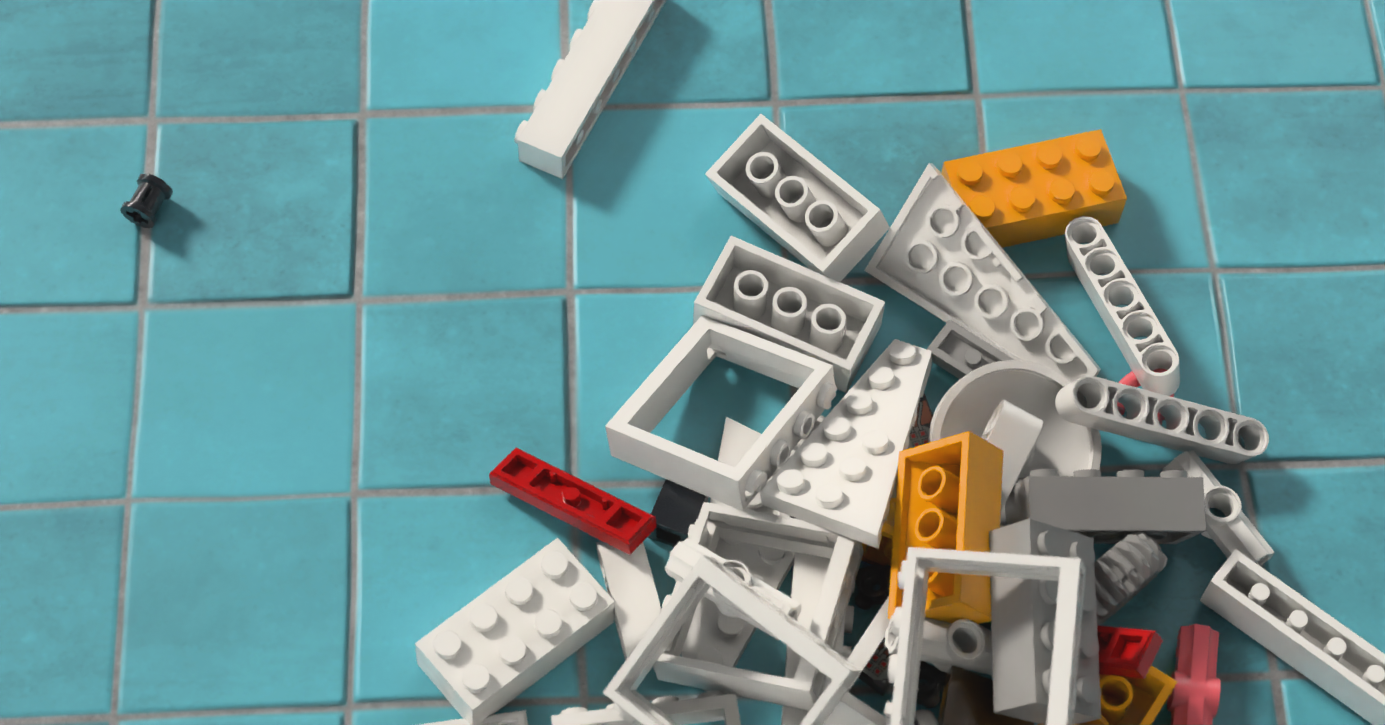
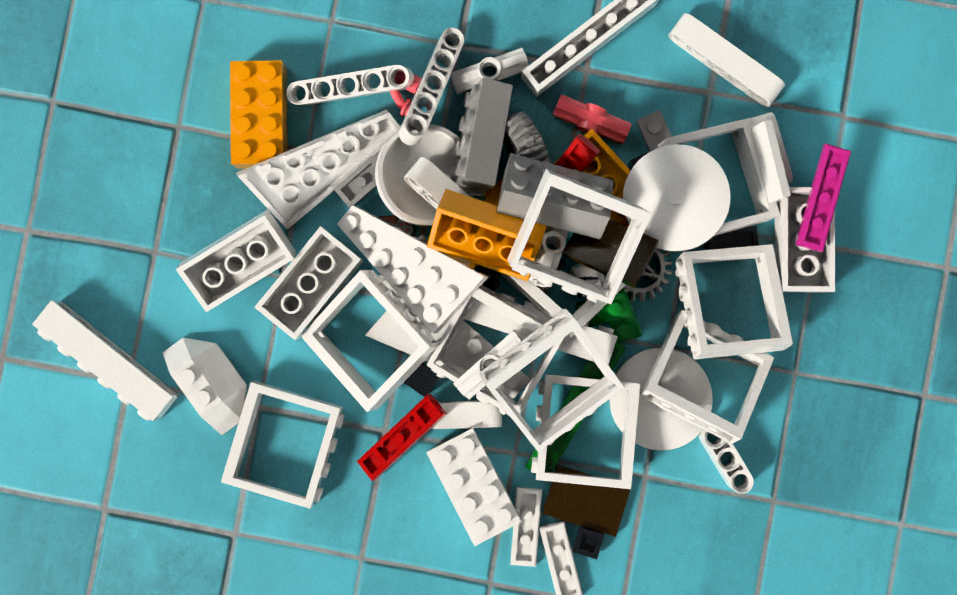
camera: 75 degrees left, 25 degrees up
(524, 273) = (244, 430): none -> white window
(590, 210) = (208, 381): none -> white wedge

